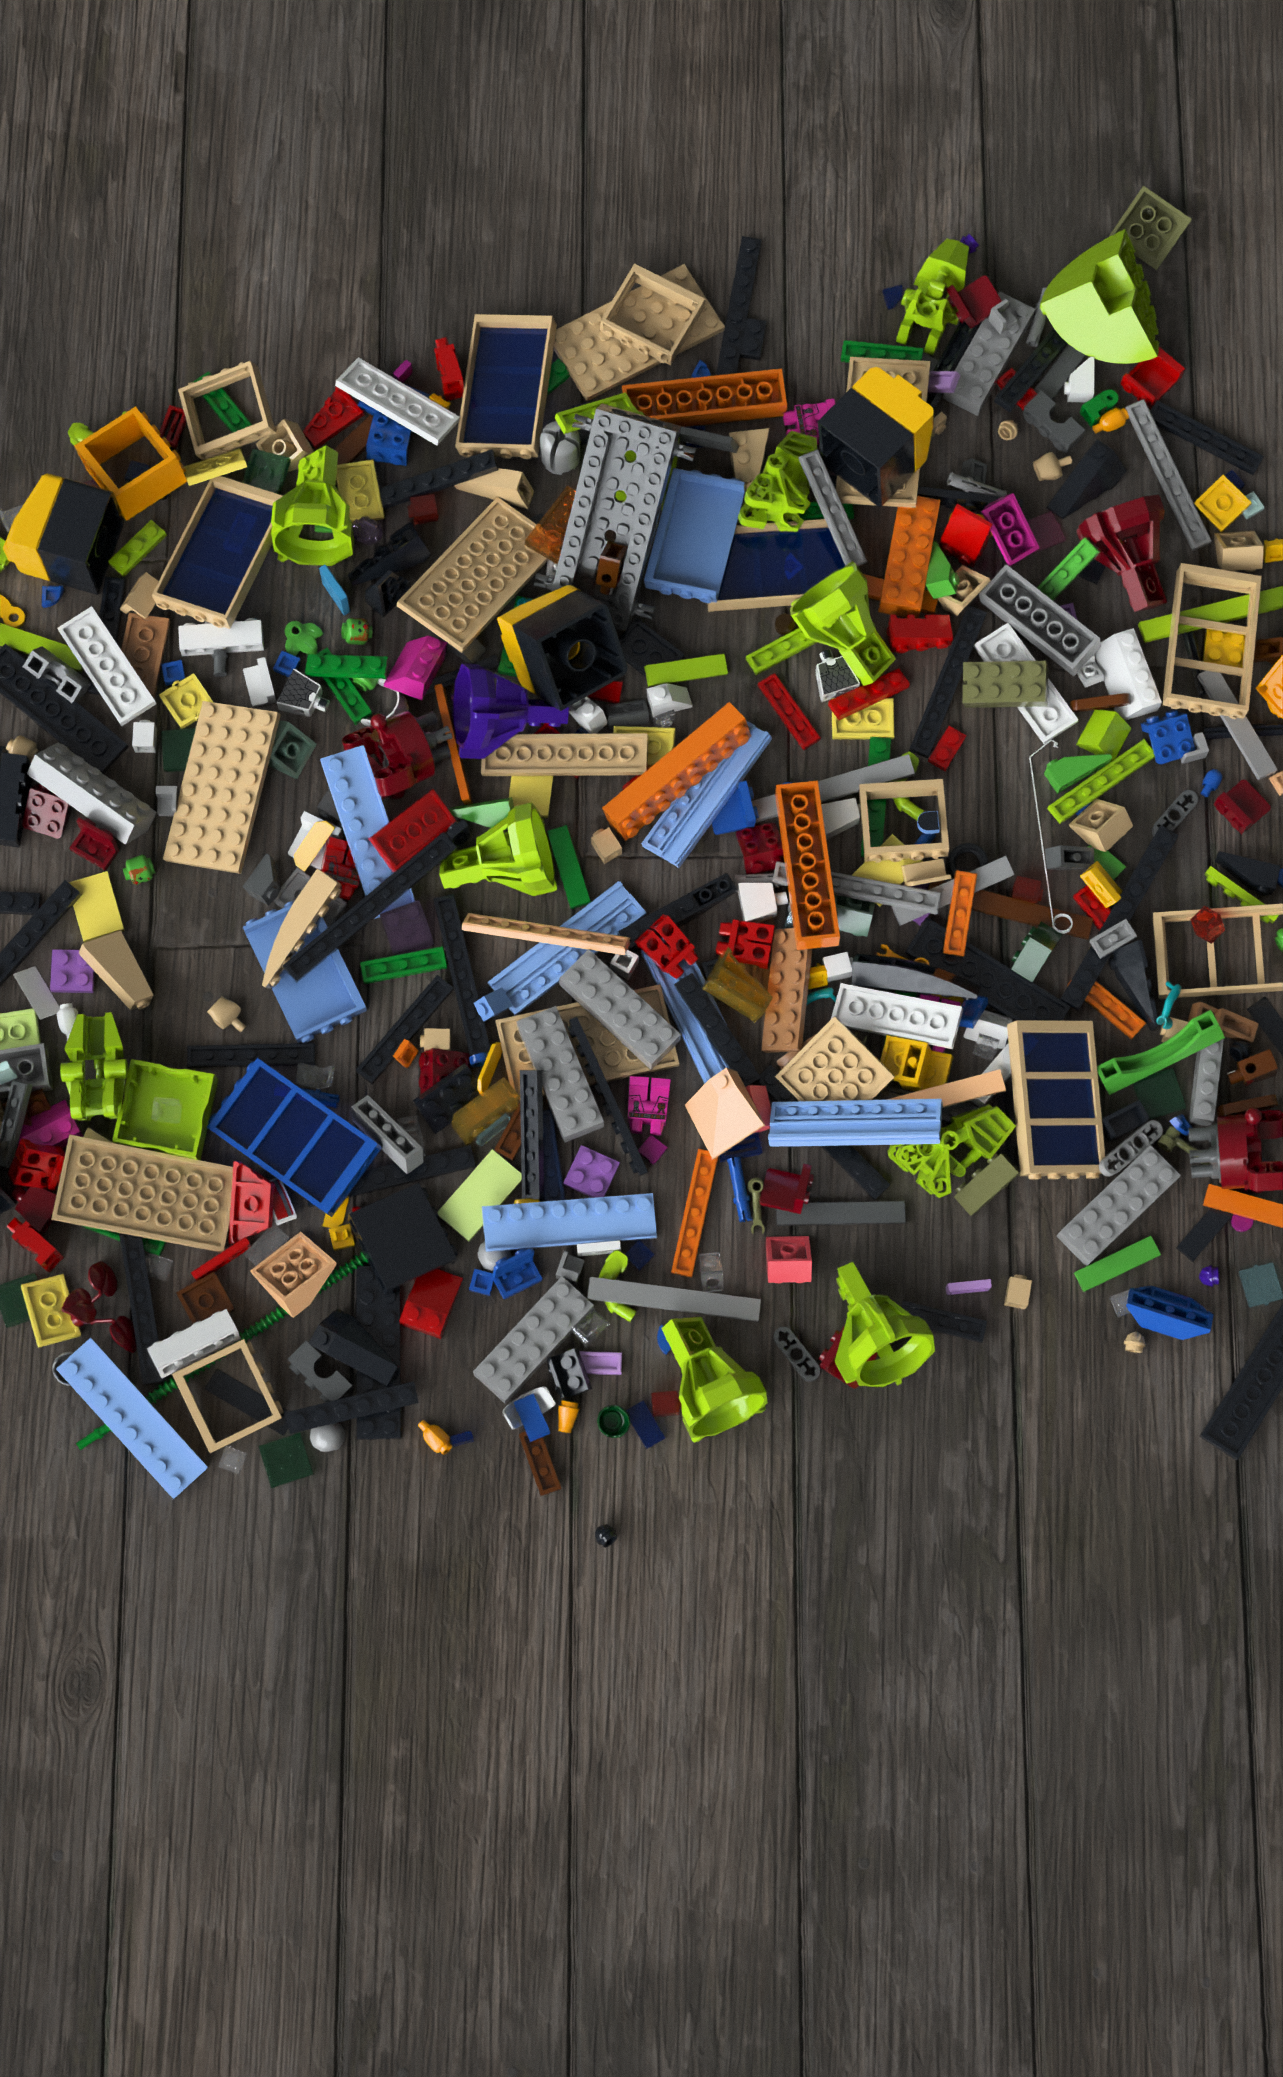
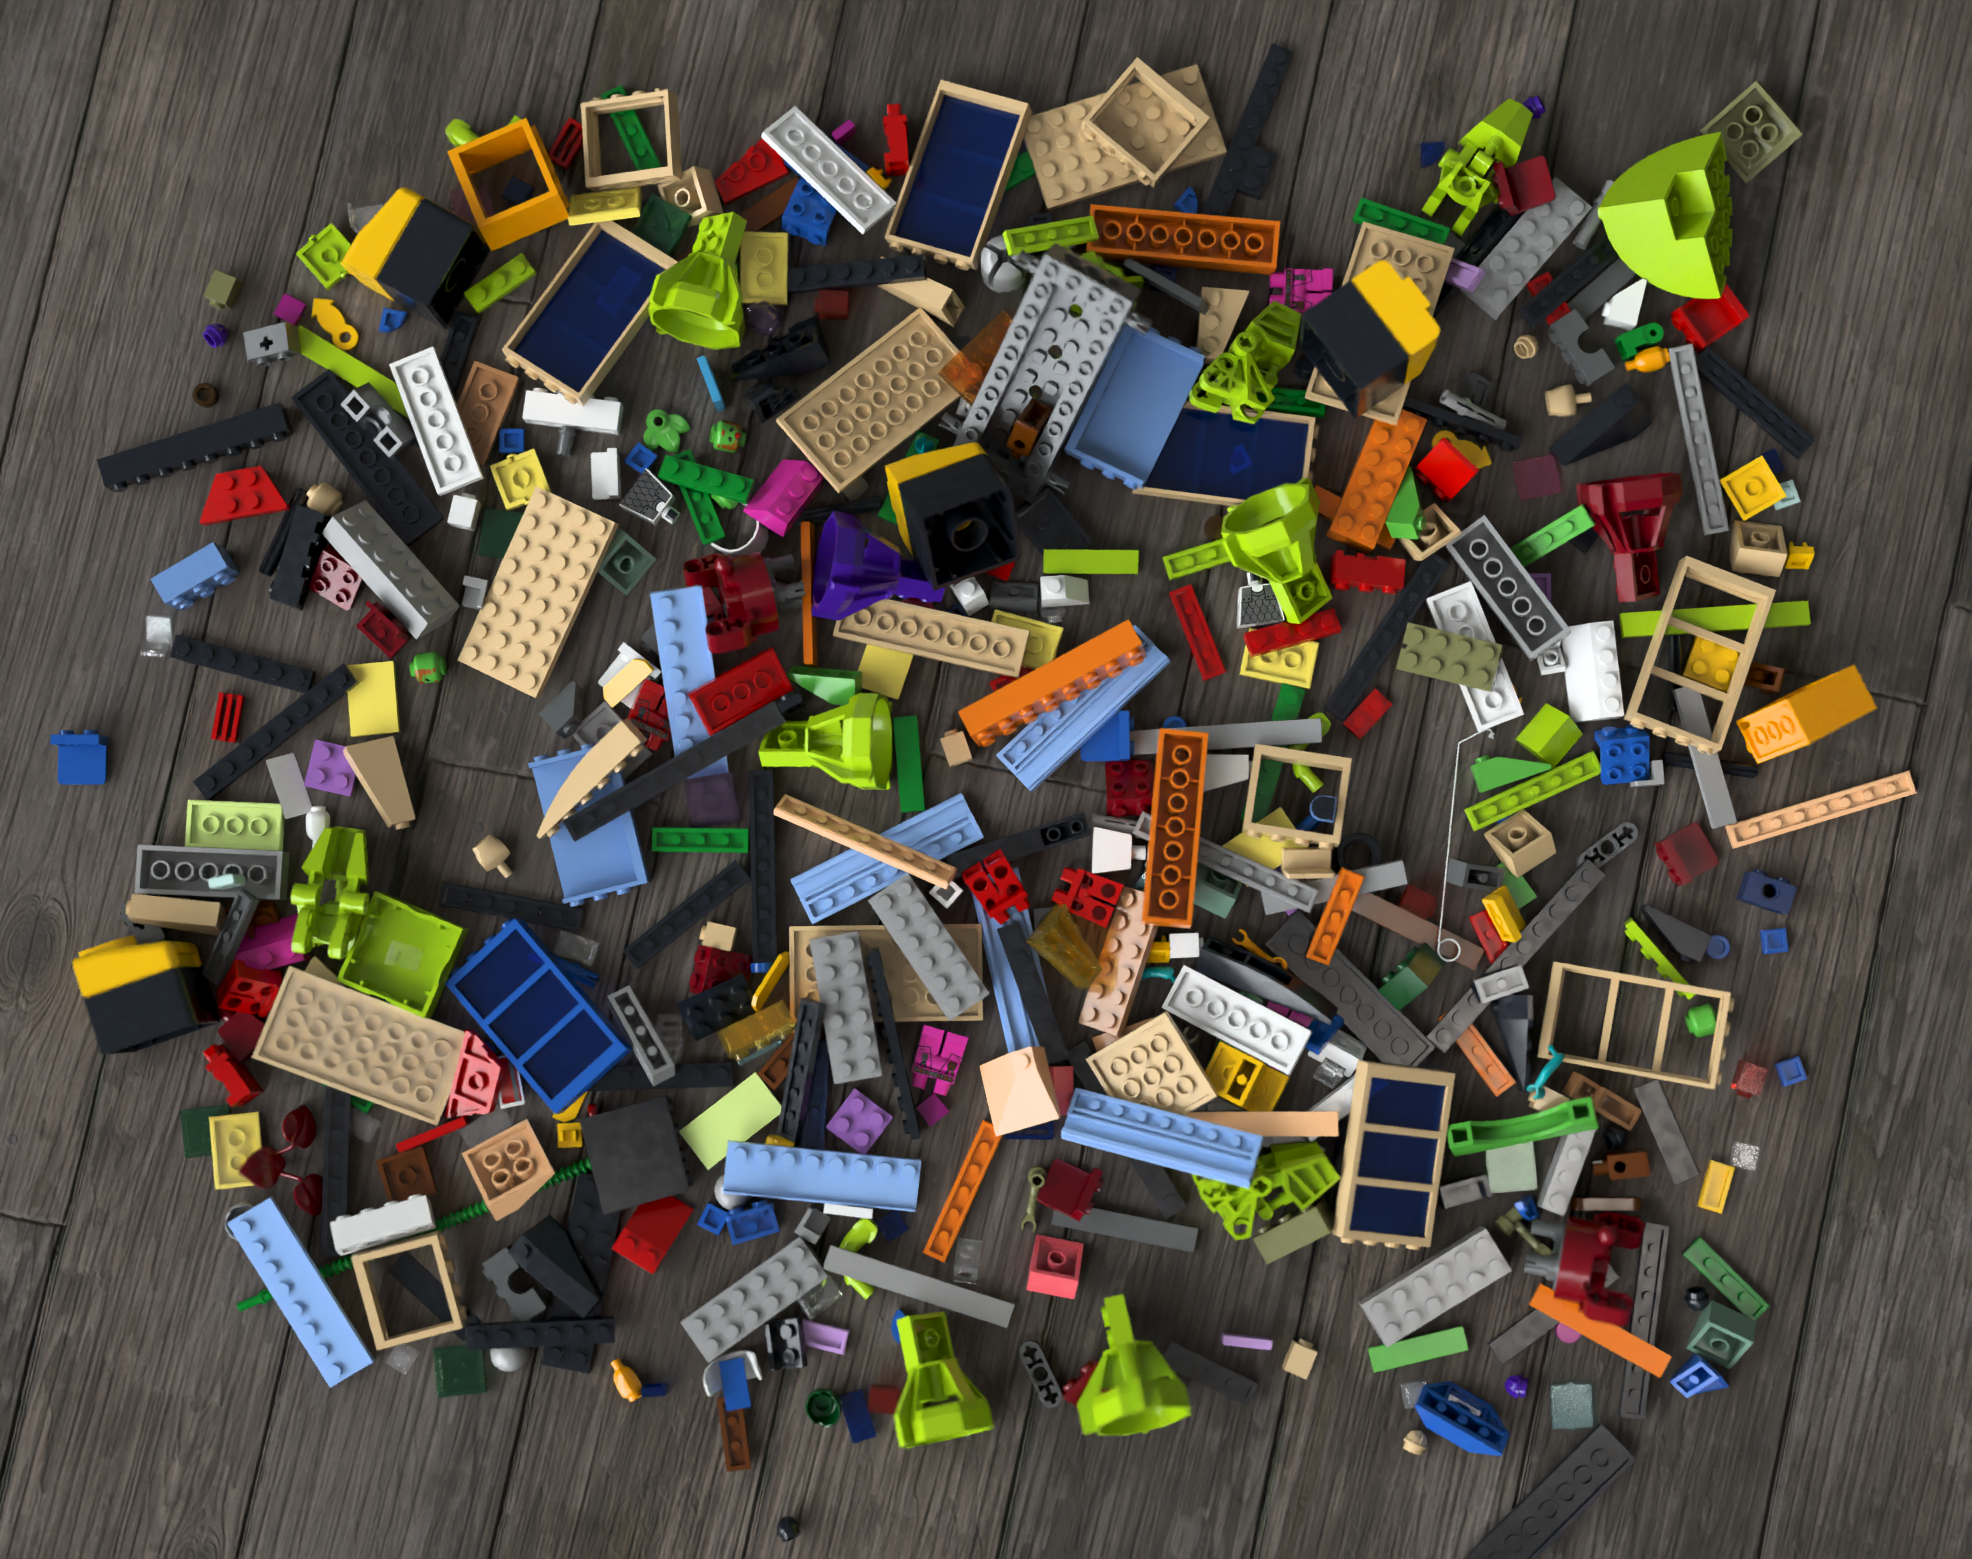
camera: 15 degrees right, 10 degrees up
(140, 597) = (490, 344): tan panel -> none
(405, 1053) = (682, 943): orange tile -> none
(492, 1004) = (789, 909): medium blue brick -> none
(567, 1415) = (775, 1387): light orange cone -> none
(741, 1198) = (1018, 1182): blue pin -> none
(832, 508) = (1299, 408): light grey tile -> none
(939, 424) = (1447, 323): tan plate -> none
(1001, 317) = (1551, 212): light grey panel -> none
(1010, 529) = (1498, 473): dark pink slope -> none
(1100, 702) = (1553, 699): reddish brown beam -> none
(1132, 1150) = (1463, 1225): light grey beam -> none
(1207, 924) = (1612, 992): clear red brick -> none
(1211, 782) = (1658, 817): blue cylinder -> none

